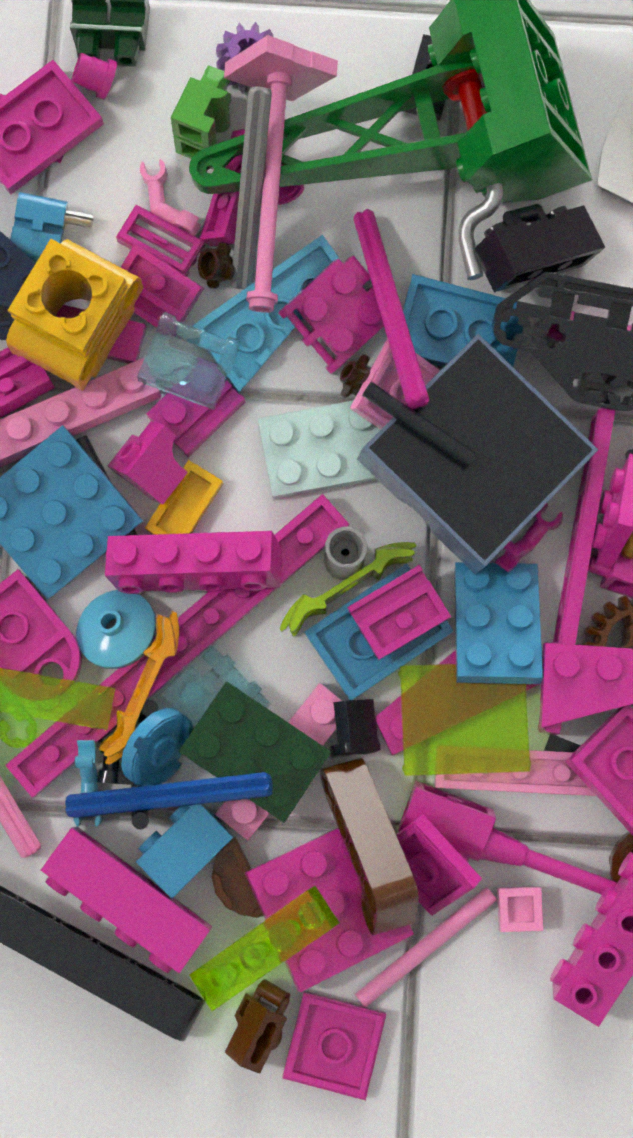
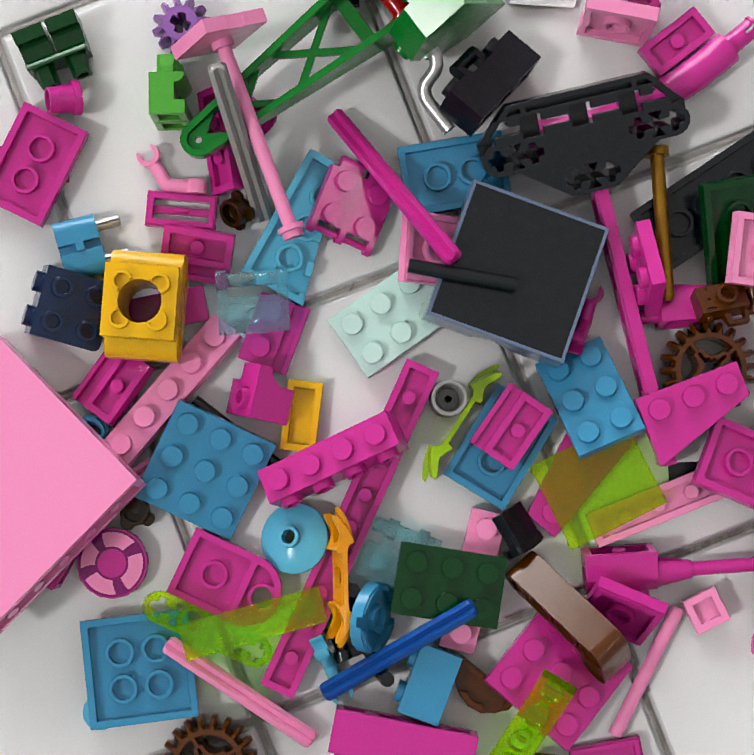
camera: 20 degrees left, 5 degrees up
(354, 375) = (389, 251): dark brown plate -> none

